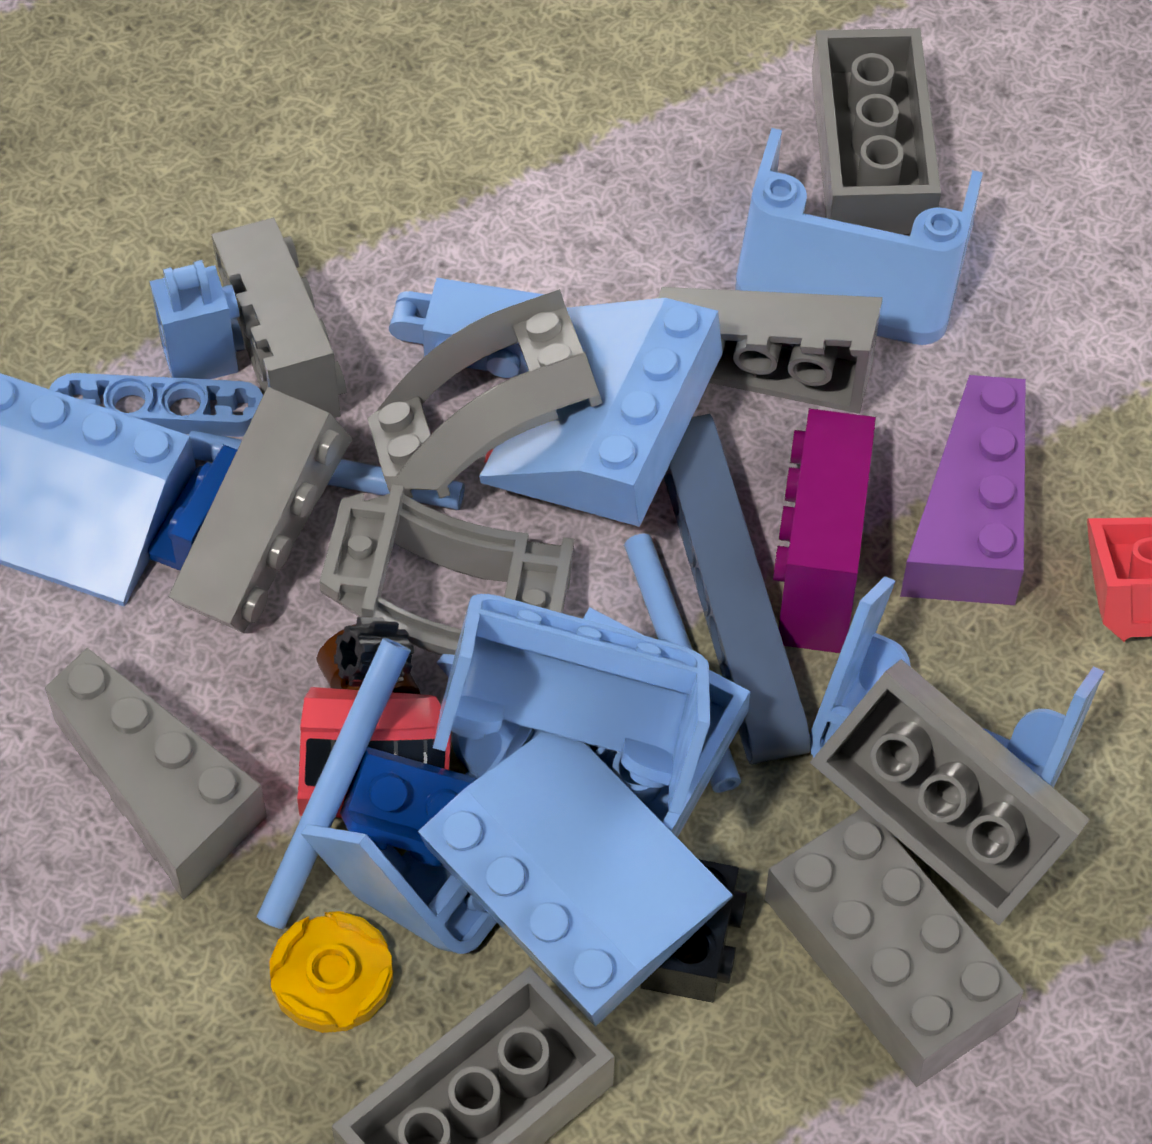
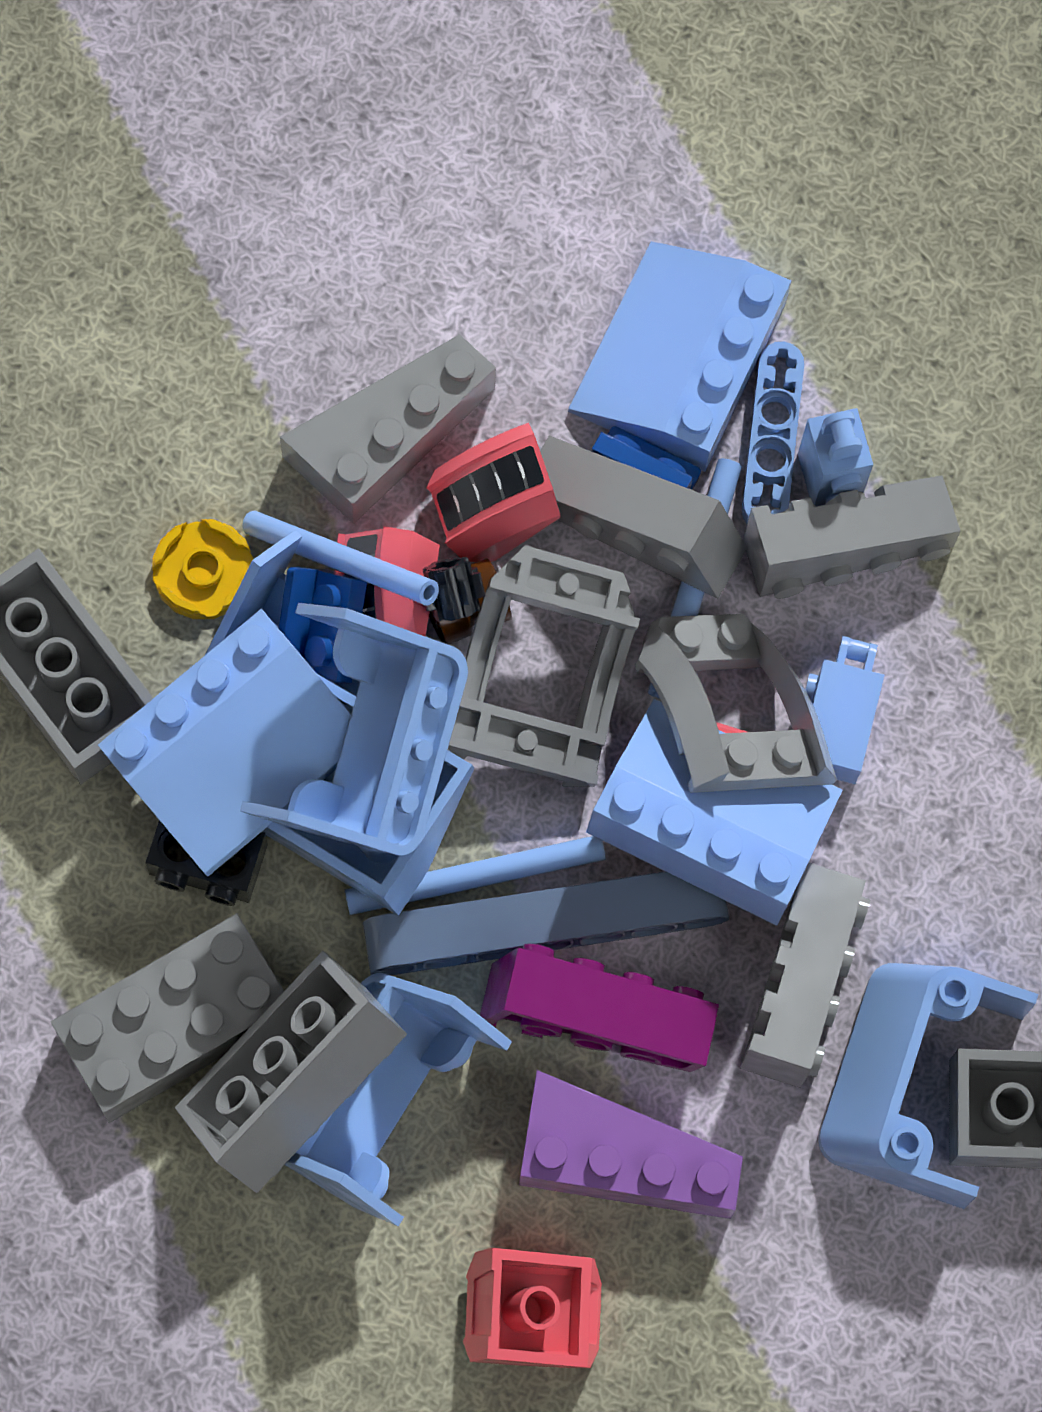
camera: 90 degrees right, 15 degrees up
(239, 639) = (494, 495): none -> coral slope

